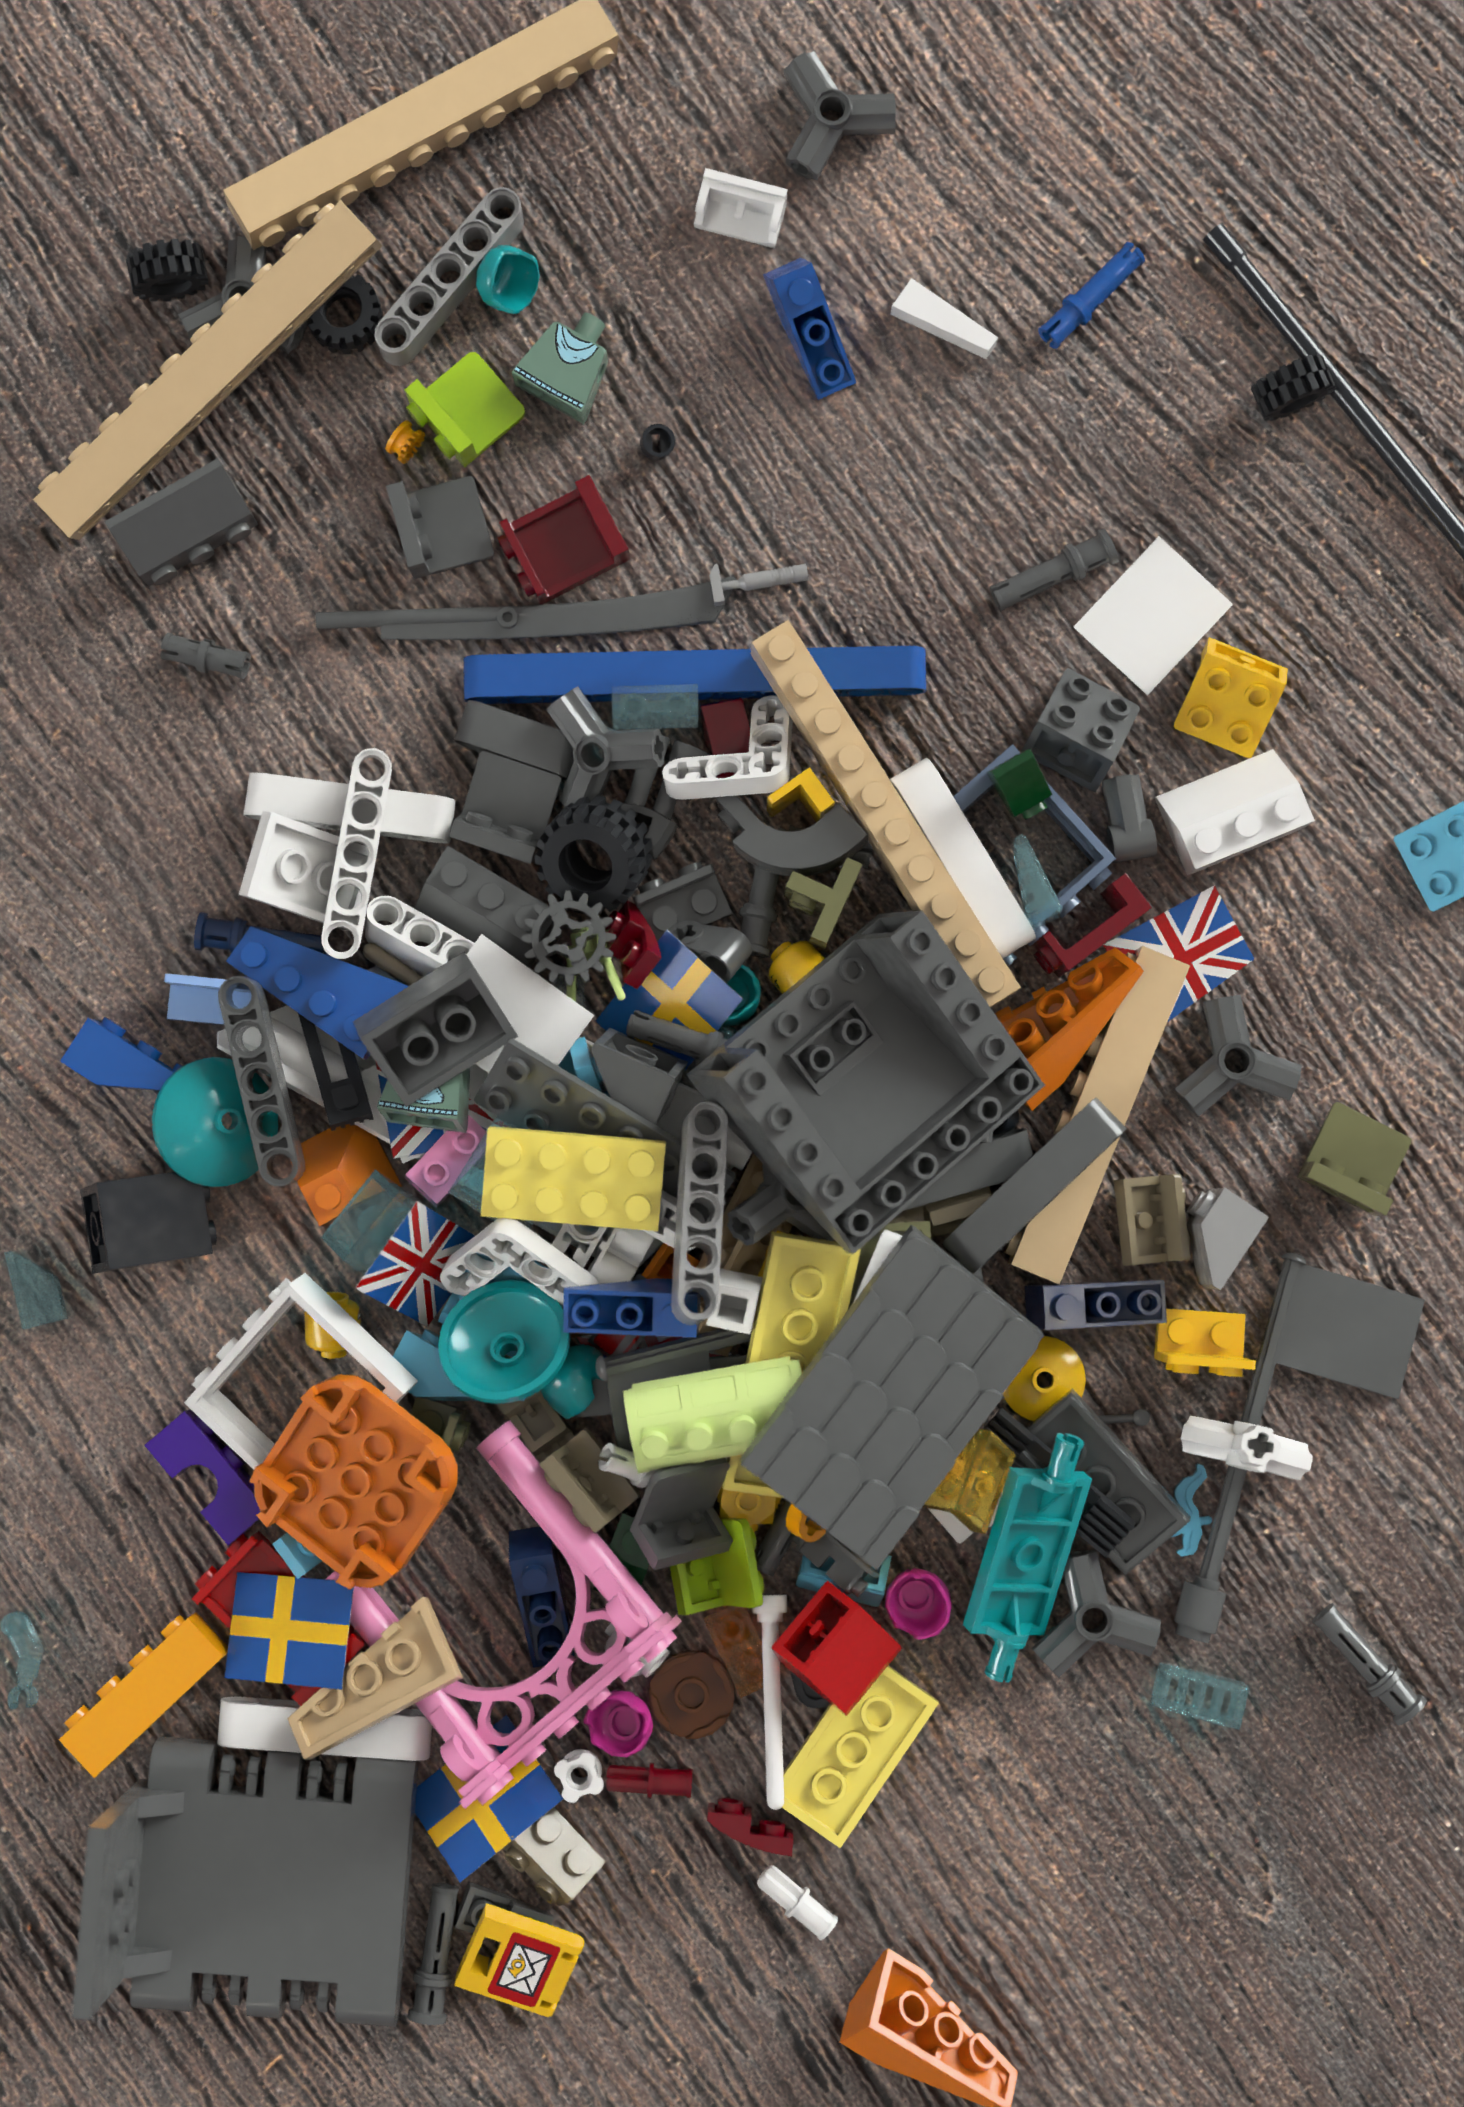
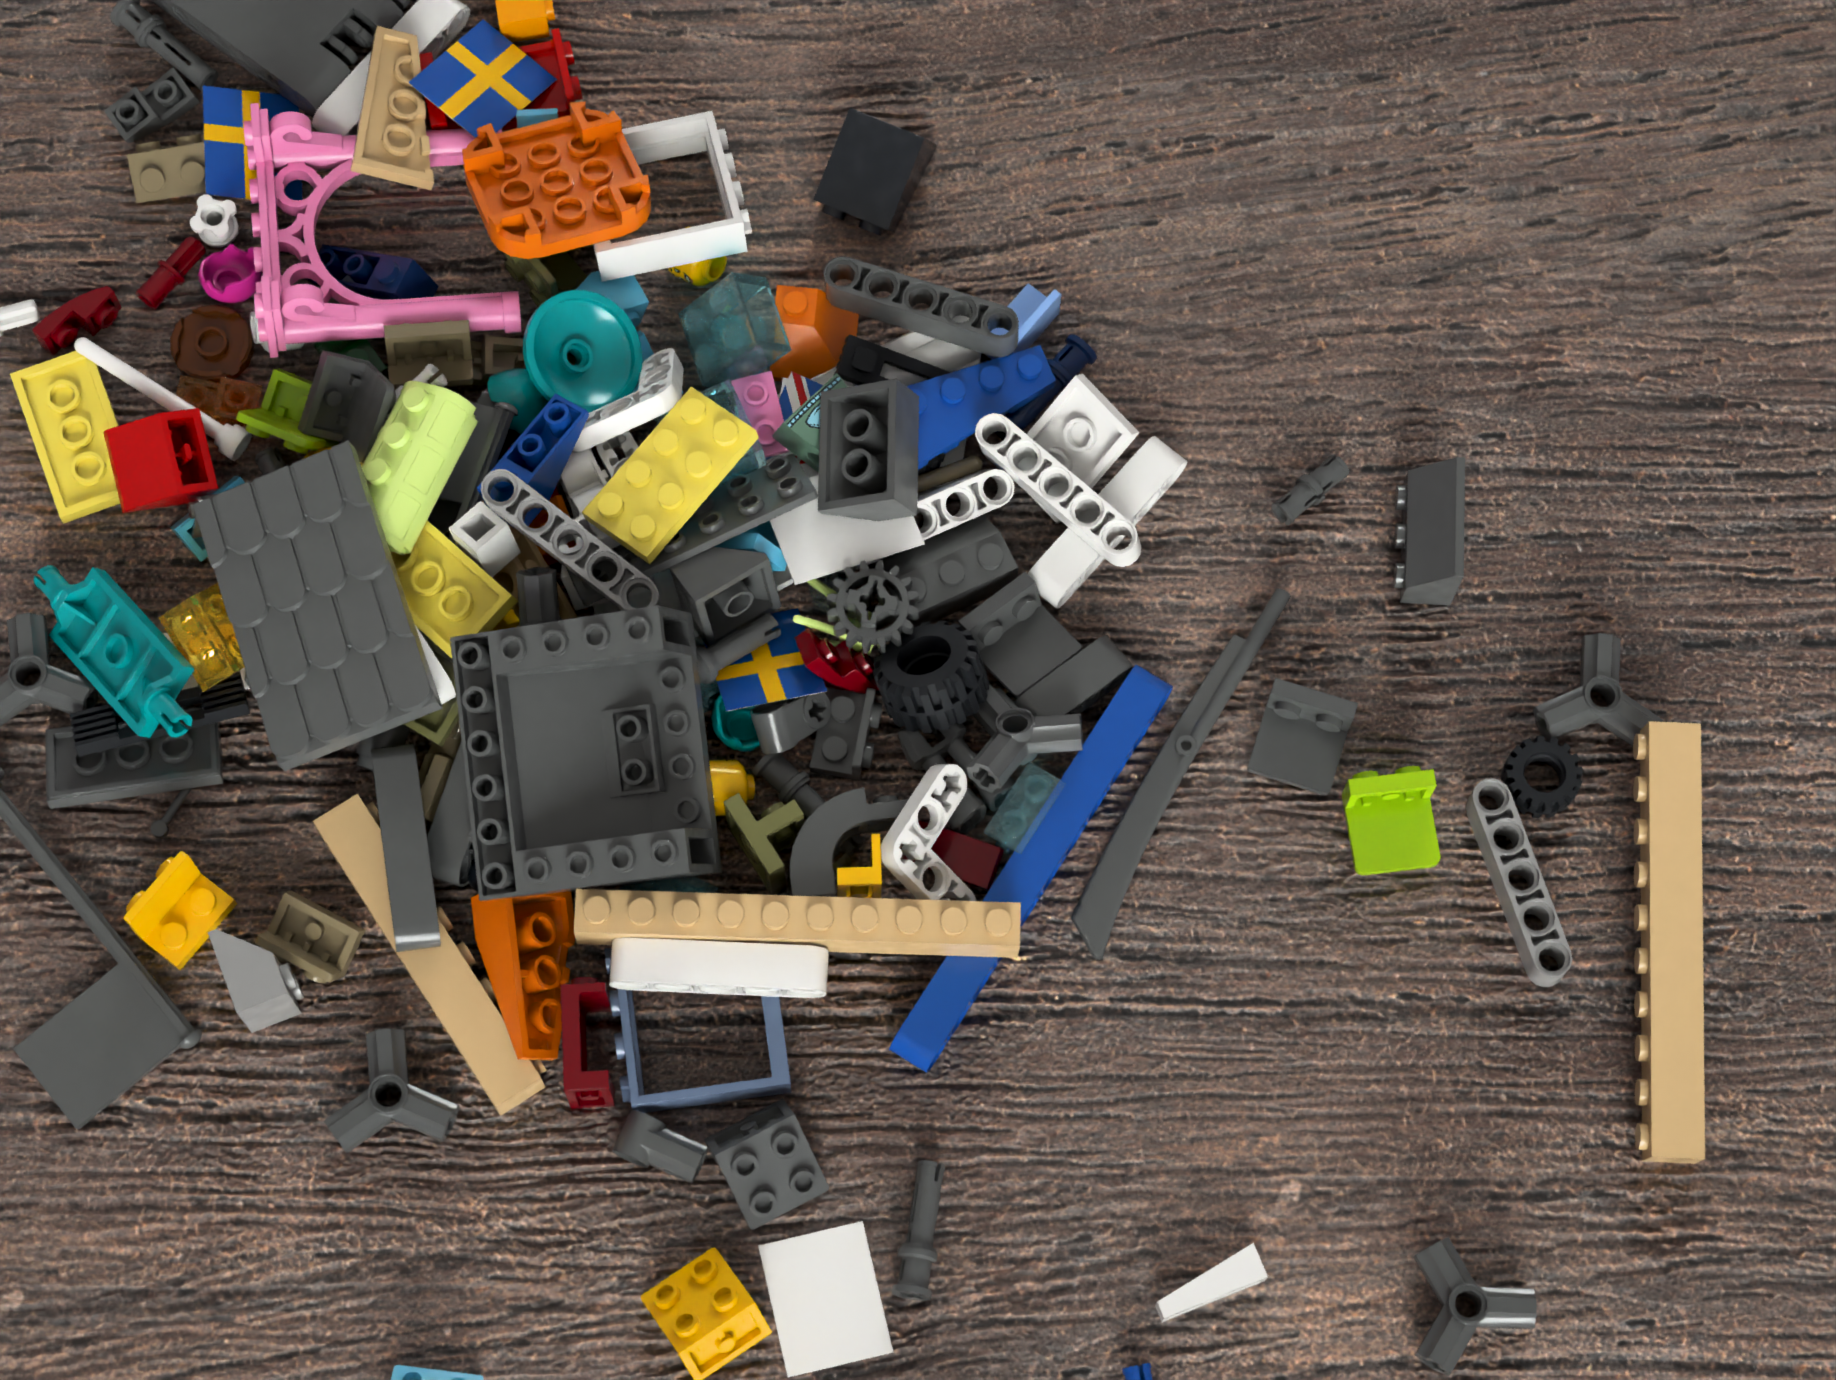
camera: 120 degrees right, 15 degrees down
(35, 1292) = (879, 66): clear light blue tile -> none
(113, 1061) = (1016, 226): blue slope -> none
(167, 270) = (1664, 651): black tyre -> none
(191, 1129) = (928, 235): teal dish -> none
(192, 1442) = (678, 96): dark purple arch -> none
(207, 370) = (1552, 630): tan brick -> none
(404, 441) = (1393, 754): light orange bush -> none
(411, 1264) = (695, 330): sticker -> none
(507, 278) = (1485, 926): teal hair -> none
(528, 1964) = (107, 98): yellow container -> none
(564, 543) = (1221, 830): dark red panel -> none
(565, 367) = (1374, 928): sand green torso -> none
(665, 442) = (1254, 972): black hinge -> none
(740, 208) = (1427, 1170): white hinge -> none
(756, 580) = (1084, 972): light grey piece -> none
(810, 326) = (1282, 1161): blue slope -> none
(918, 1603) = (147, 552): dark pink hair -> none
(1021, 784) = (749, 1052): dark green slope -> none
(1036, 892) = (649, 1011): clear light blue slope -> none
(1066, 1371) = (253, 790): yellow dish -> none
(1096, 1304) = (275, 845): dark blue slope -> none
(1183, 1495) = (71, 821): medium azure piece -> none
(1195, 934) = (521, 1144): sticker -> none
(1234, 811) = (603, 1244): white slope -> none
(1246, 1447) = (67, 885): white piece -> none
(1355, 1159) = (232, 1143): olive bracket -> none

